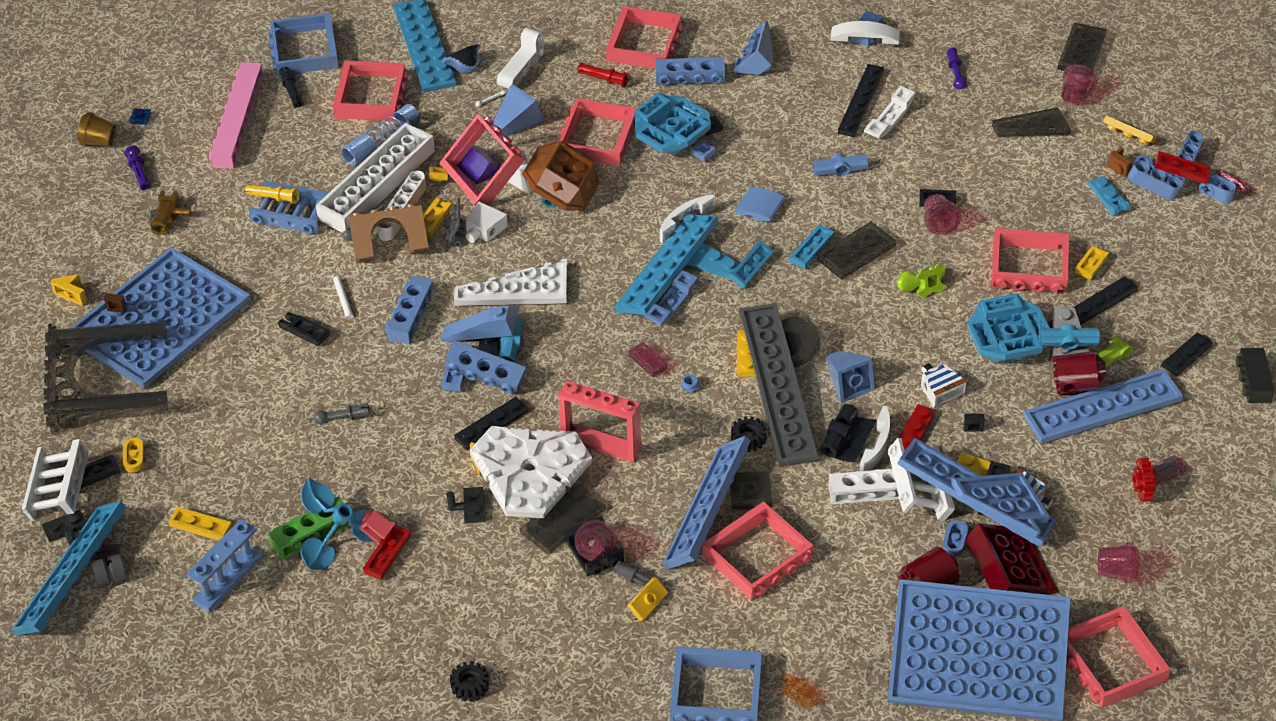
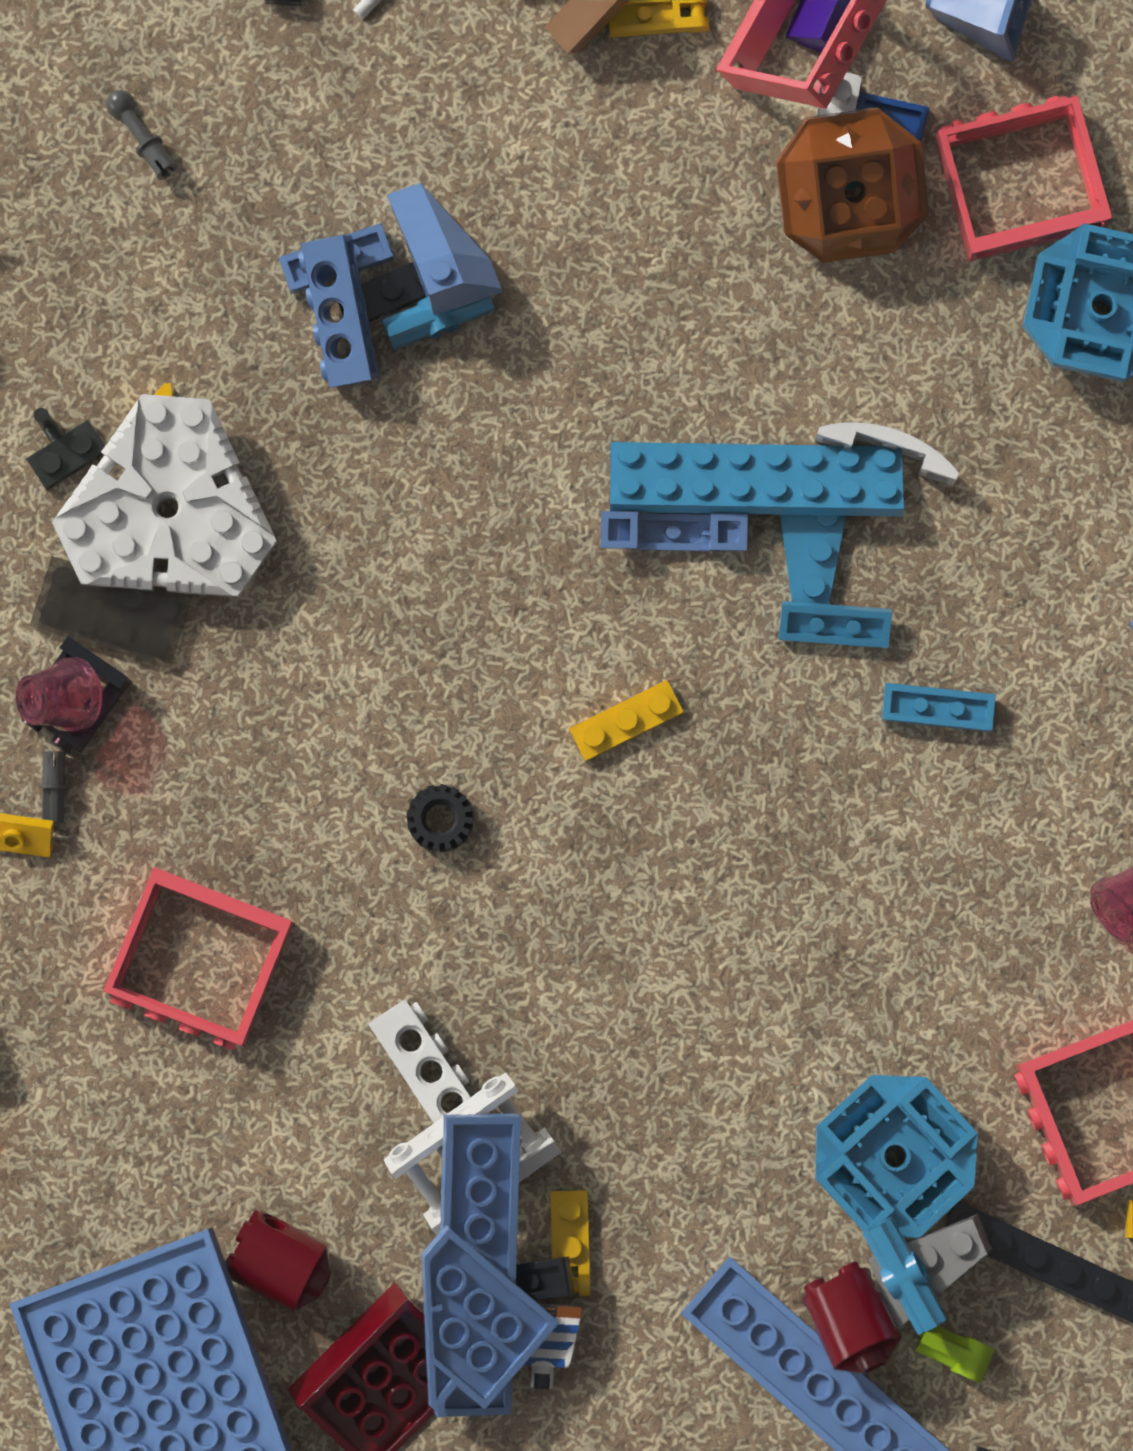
camera: 60 degrees right, 35 degrees up
(409, 309) = (403, 121): medium blue brick -> none
(454, 226) = (657, 53): dark grey hinge -> none
(485, 223) = (684, 110): white torso -> none
(499, 417) = (249, 384): black plate -> none
(524, 286) = (577, 267): white wing -> none
(606, 403) = (297, 573): coral window -> none
(648, 359) = (519, 564): clear pink plate -> none
(690, 383) = (506, 653): medium blue plate -> none
(703, 151) = (1079, 392): medium blue plate -> none
(706, 503) = (247, 828): medium blue plate -> none
(750, 490) = (321, 881): clear smoke plate -> none
(760, 204) = (997, 563): medium blue slope -> none
(778, 385) = (568, 812): dark grey plate -> none
(802, 339) = (681, 790): clear smoke piece -> none
(846, 434) = (527, 982): black panel -> none
(850, 374) = (655, 918): medium blue slope -> none
(856, 250) = (971, 790): clear smoke plate -> none
(872, 457) = (486, 1045): white slope -> none
(917, 424) = (602, 1087): red plate -> none
(927, 279) = (959, 946): lime animal -> none
(941, 384) = (720, 1086): torso -> none
(954, 539) = (391, 1263): medium blue plate -> none
(973, 422) = (662, 1181): black plate -> none

